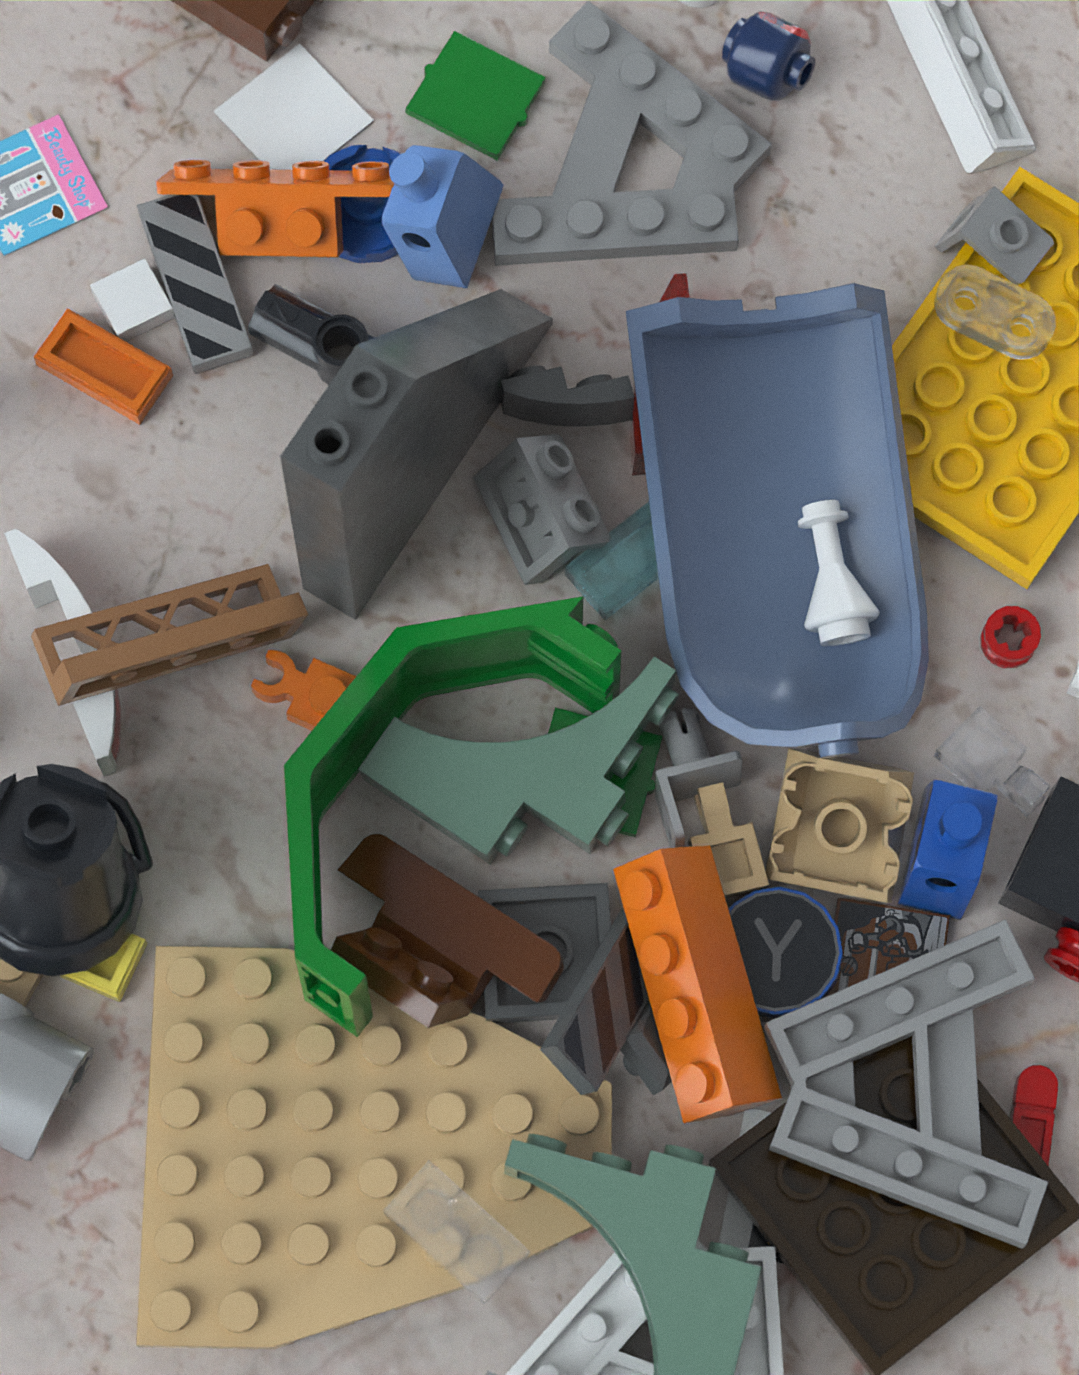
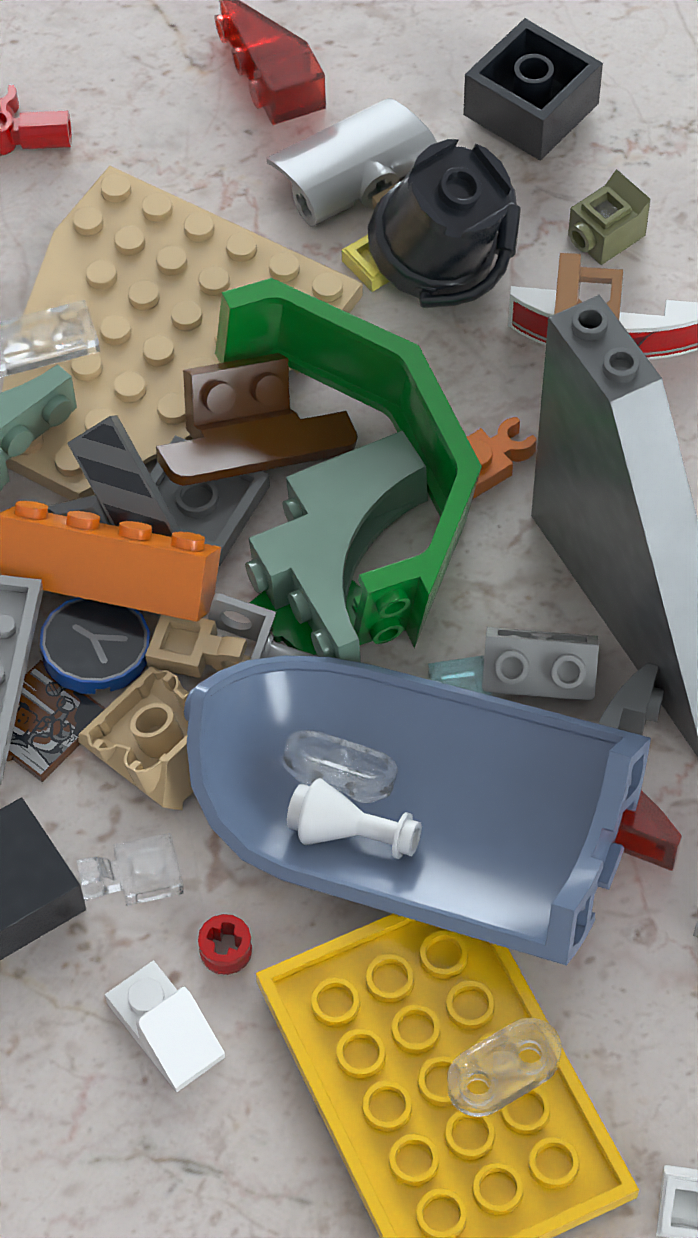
camera: 125 degrees right, 15 degrees down
(784, 620) = (344, 765): none -> clear plate
(947, 845) = (83, 777): blue torso -> none
(999, 235) = (575, 1124): light grey bracket -> none

